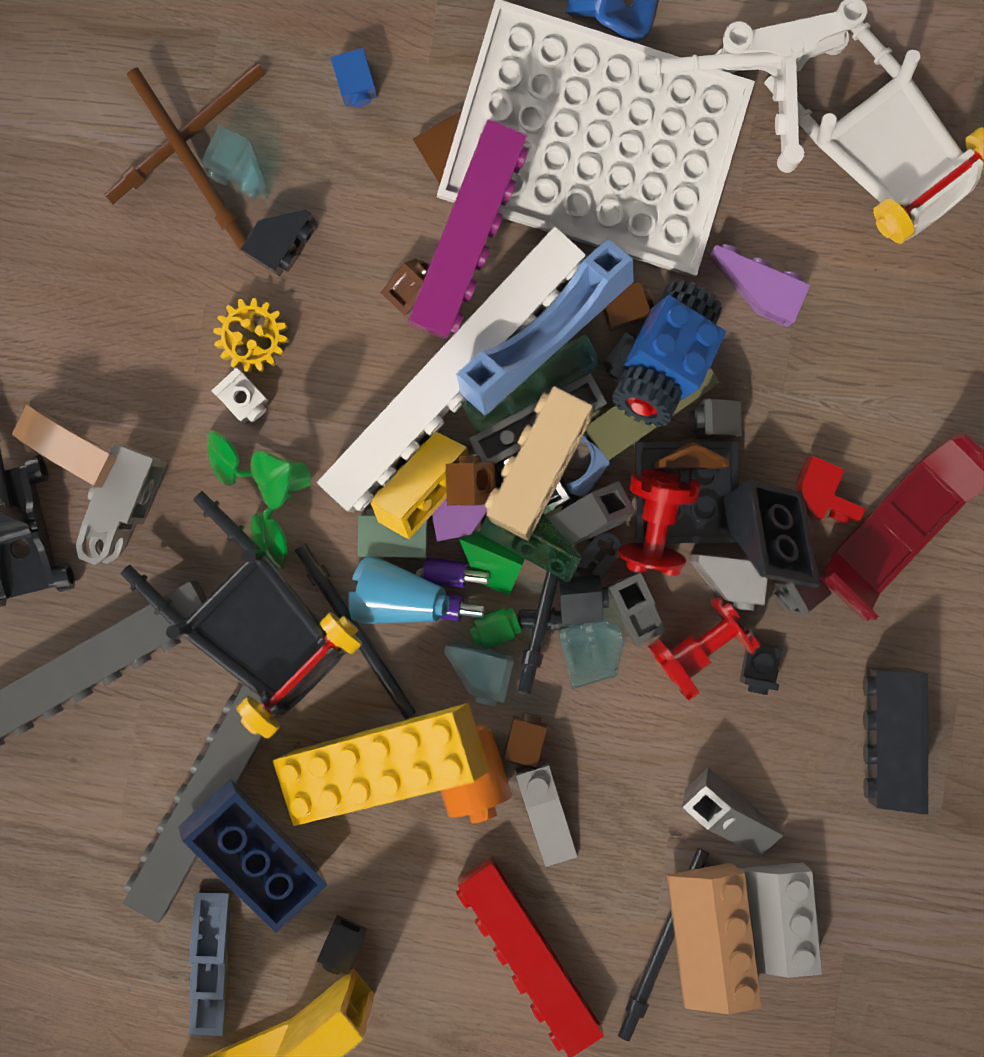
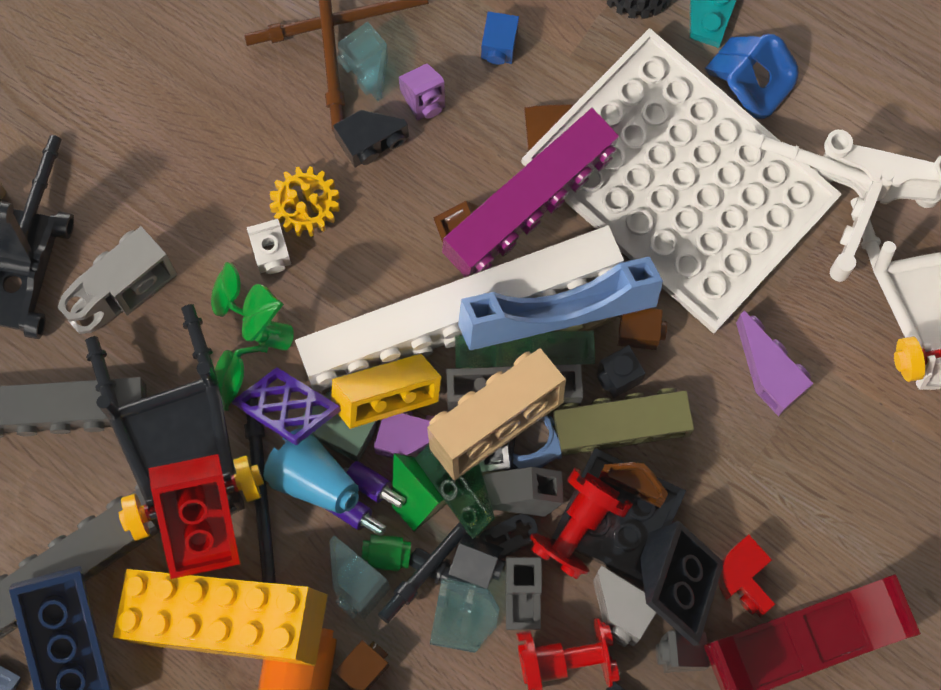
camera: 25 degrees right, 15 degrees down
(64, 446) = (98, 213): slope -> none
(308, 170) = (423, 91): none -> medium lavender slope
(311, 693) = (194, 516): none -> red slope
(370, 551) = (310, 422): none -> dark purple window
(469, 481) = (426, 401): reddish brown brick -> none
(670, 354) = (657, 379): brick -> none
(716, 419) = (676, 460): dark grey slope -> none

